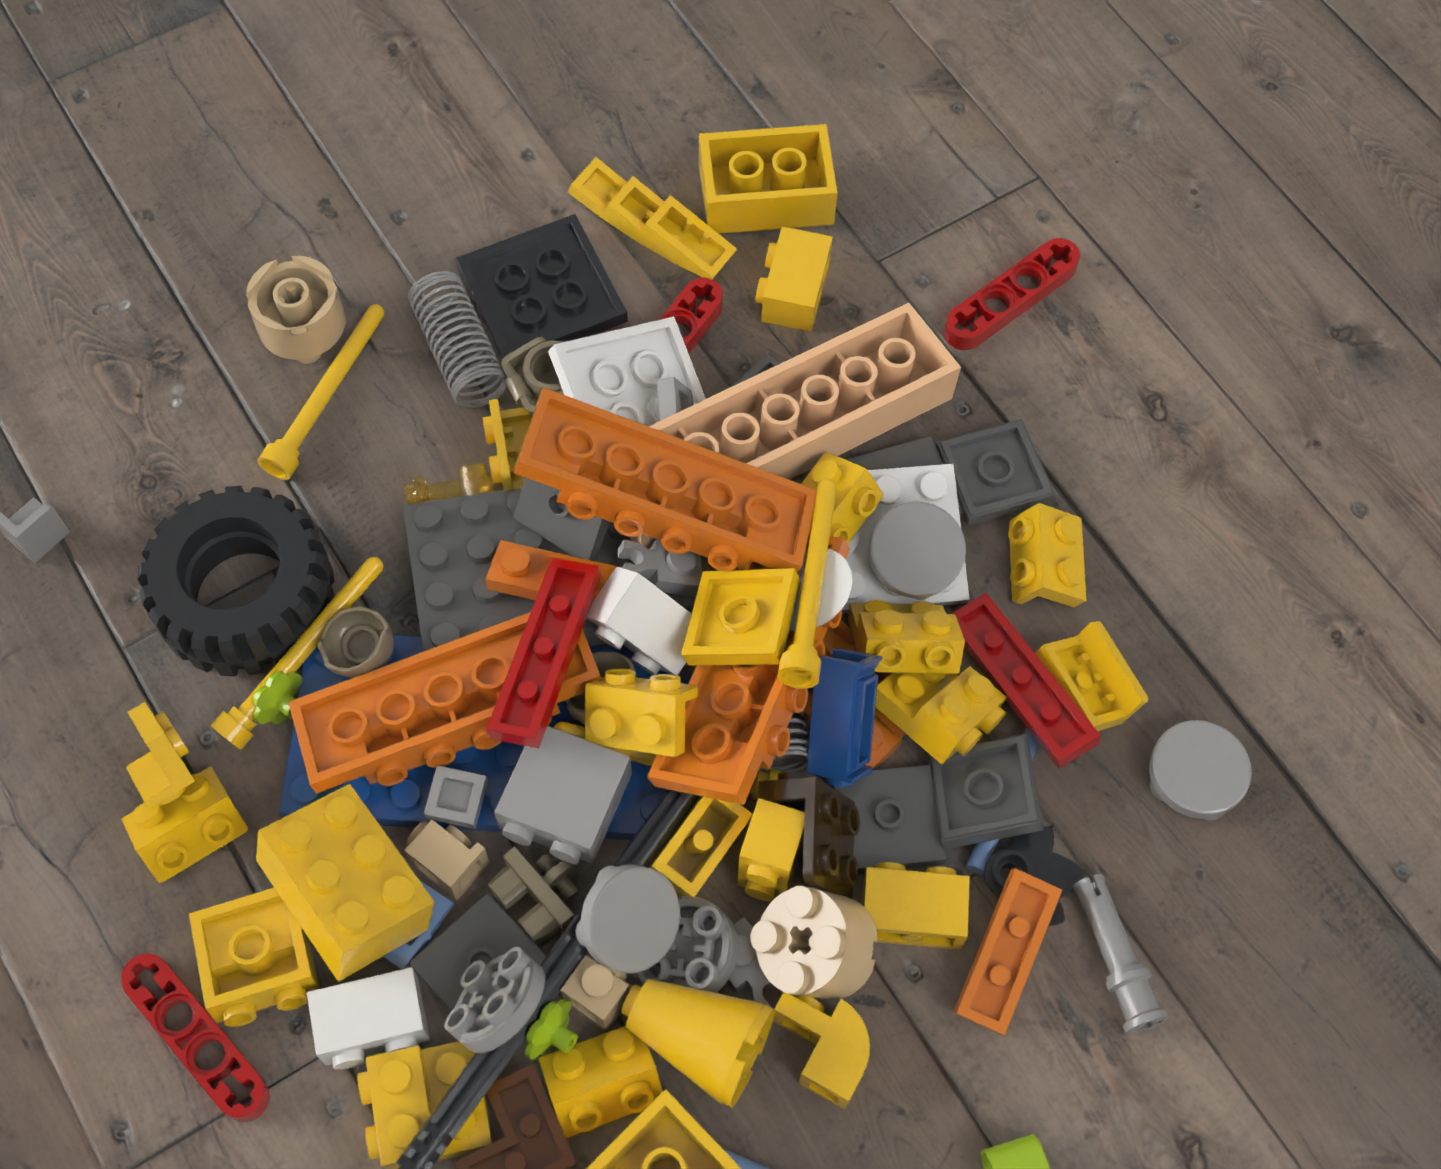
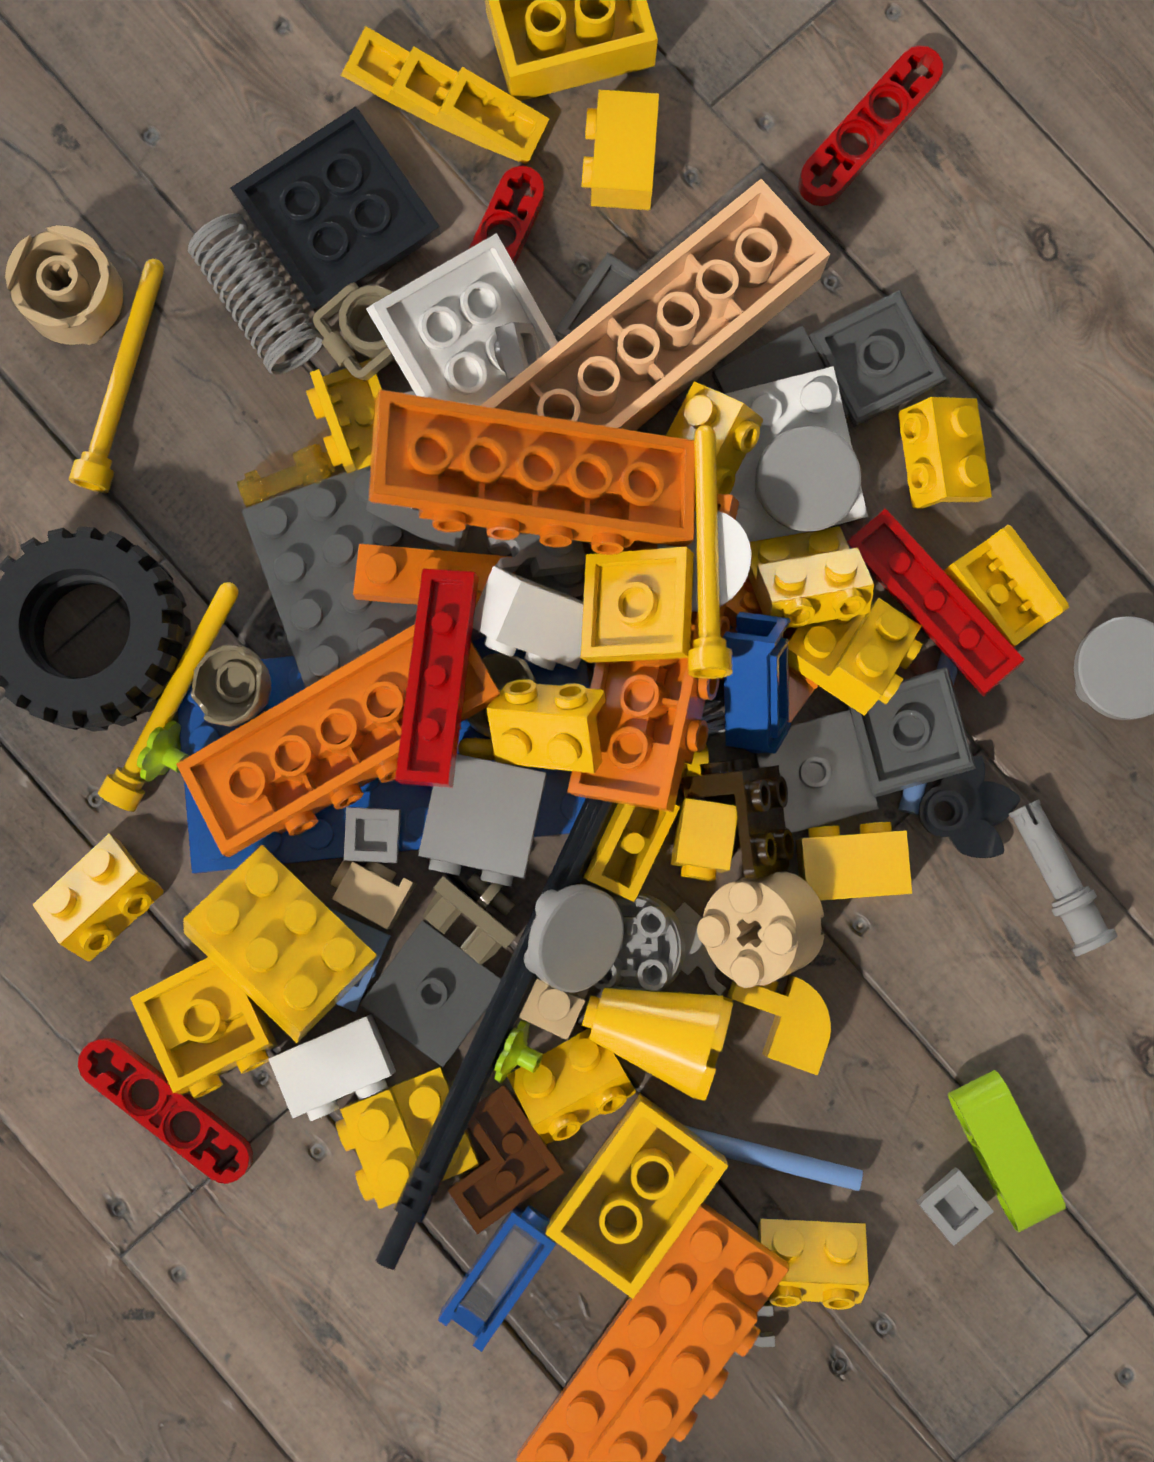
camera: 10 degrees left, 20 degrees up
(160, 773) = (57, 843): yellow bracket -> none
(496, 1000) = (458, 1040): light grey tile -> none
(1007, 951) = (952, 896): orange plate -> none

